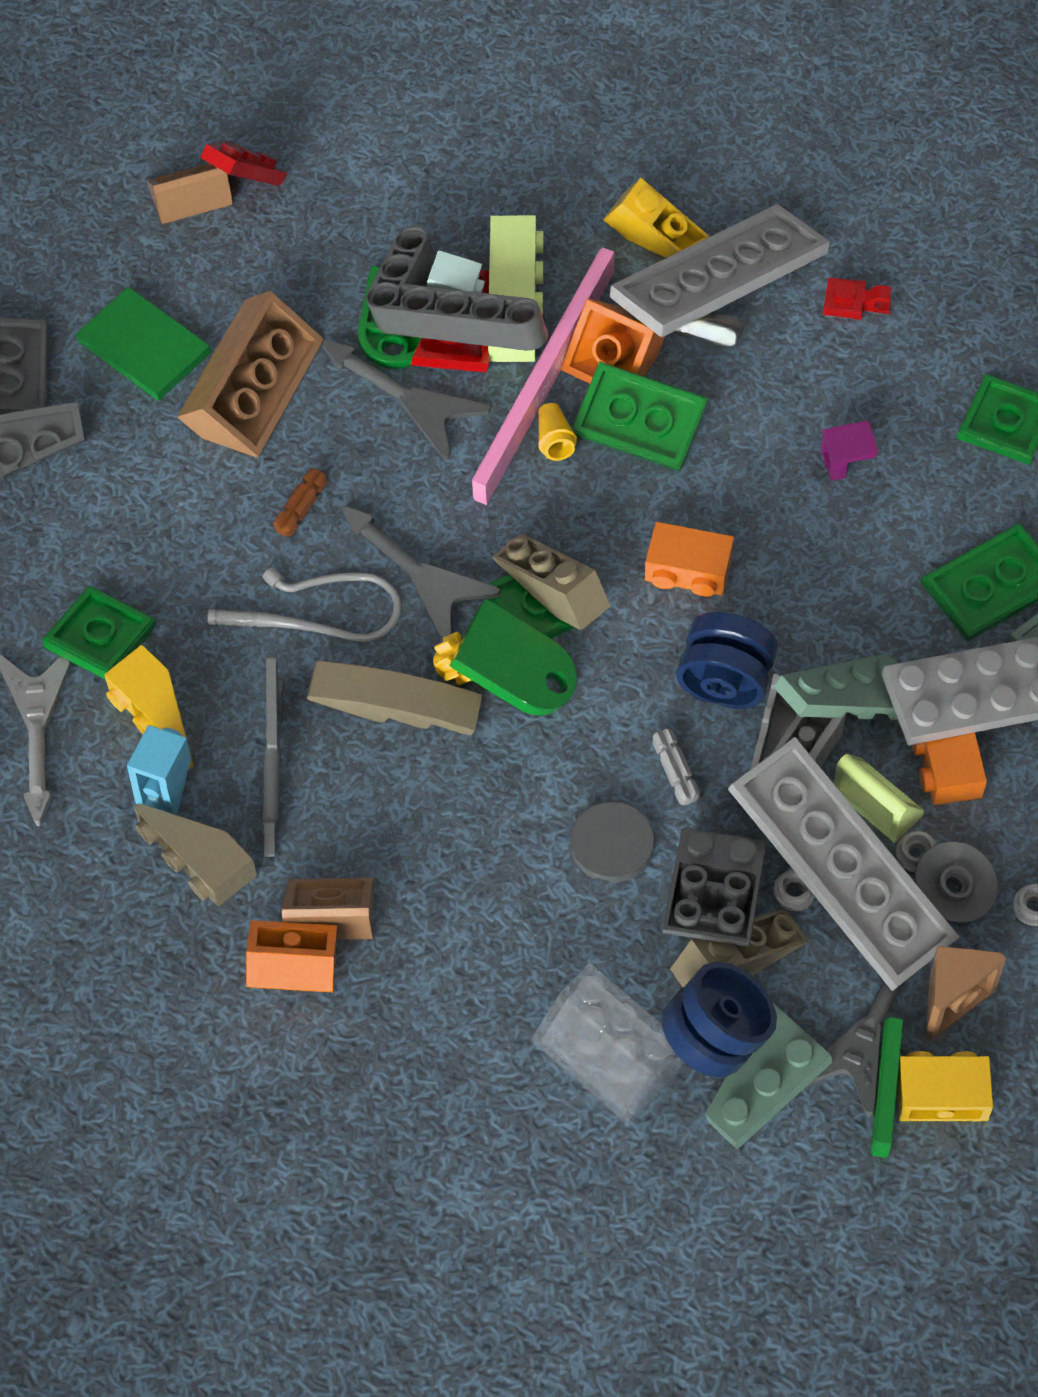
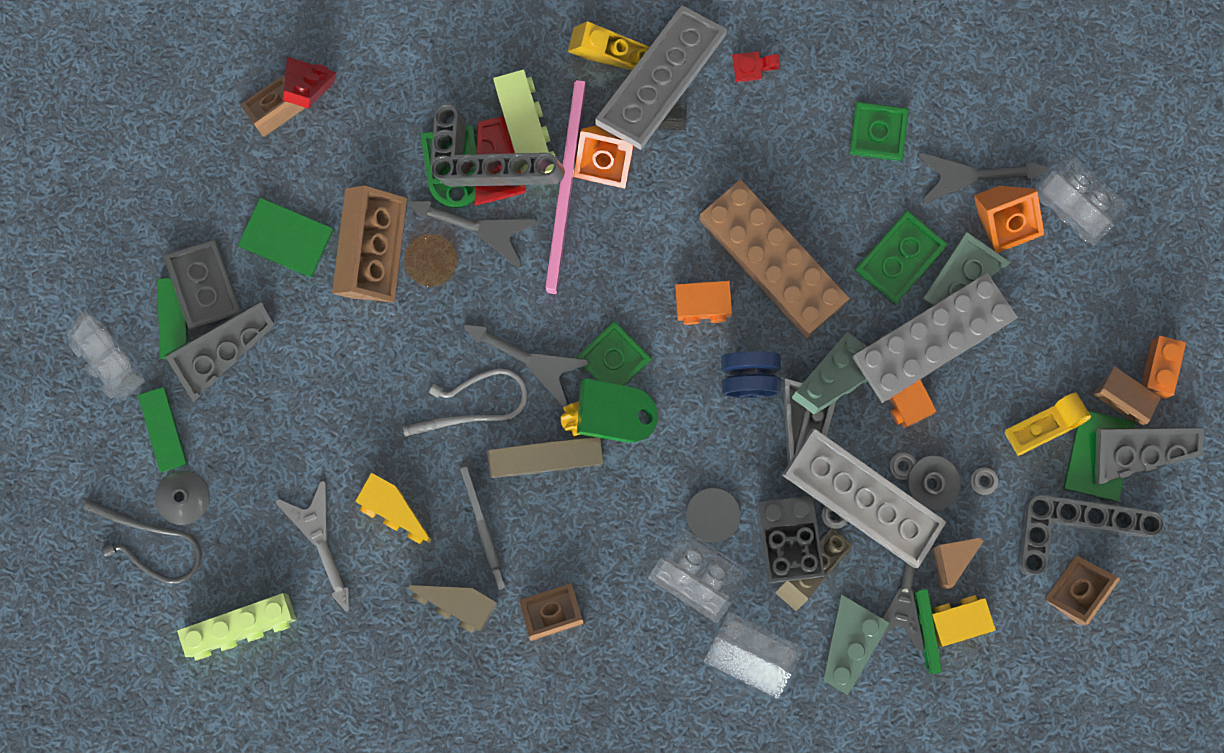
camera: 15 degrees left, 20 degrees up
(98, 632) = (337, 465): green tile -> none
(160, 769) = (416, 558): medium azure slope -> none
(291, 956) = (542, 658): orange brick -> none
(300, 502) = (434, 329): dark orange axle -> none
(337, 424) = (428, 268): none -> clear orange tile
(455, 273) = (485, 138): light aqua brick -> none
(555, 433) = (586, 229): yellow cone -> none
(555, 580) = (620, 345): dark tan slope -> none
(561, 912) = (699, 575): none -> clear slope
(640, 416) = (638, 201): green tile -> none
(676, 767) = (737, 451): light grey axle -> none
(719, 1019) = (819, 628): dark blue wheel -> none
(808, 532) = (773, 259): none -> medium nougat brick
(846, 445) = (783, 188): magenta panel -> none
(876, 797) = (870, 437): yellowish green tile -> none

